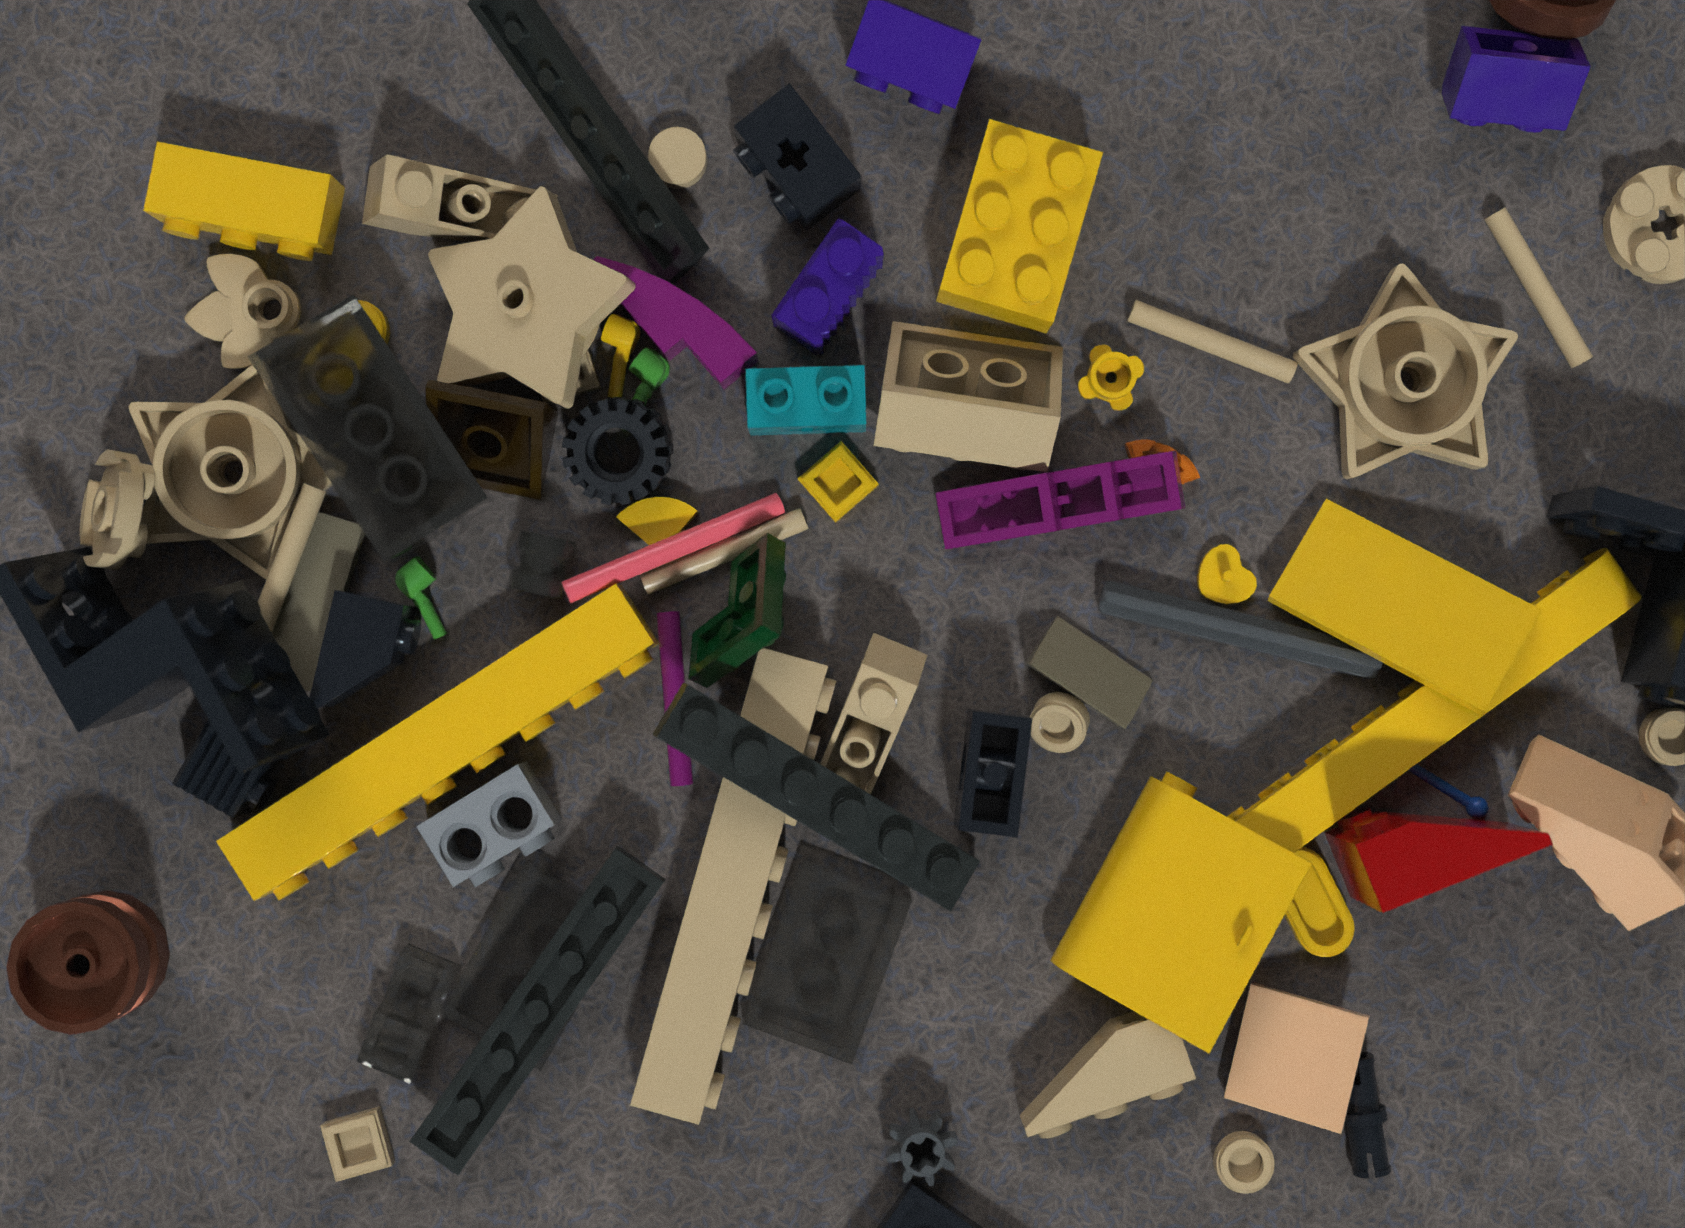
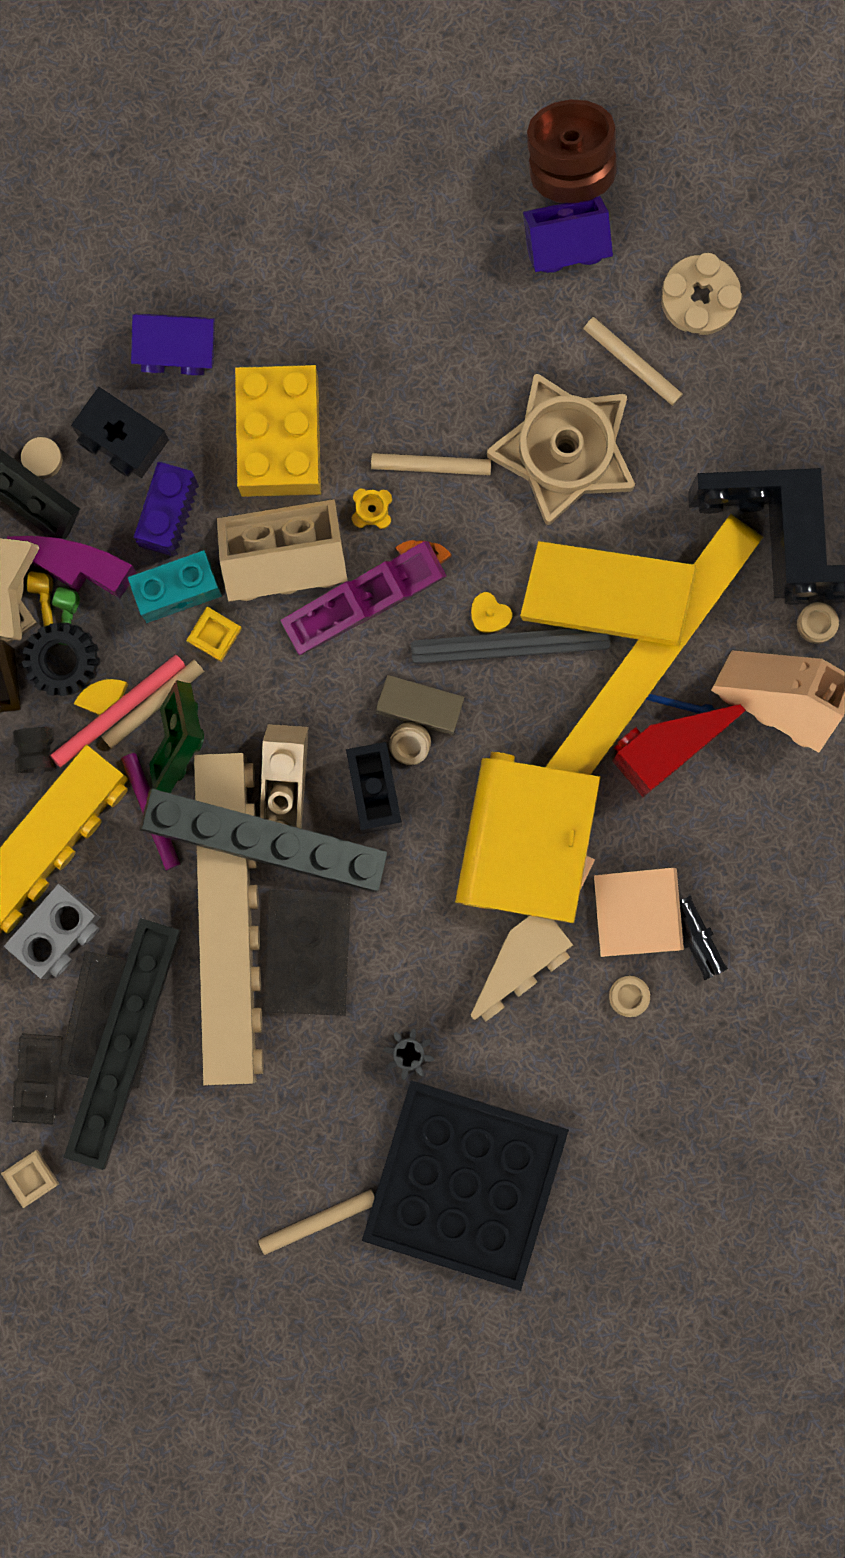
camera: 10 degrees left, 5 degrees down
(1319, 911) = (621, 811): yellow tile -> none

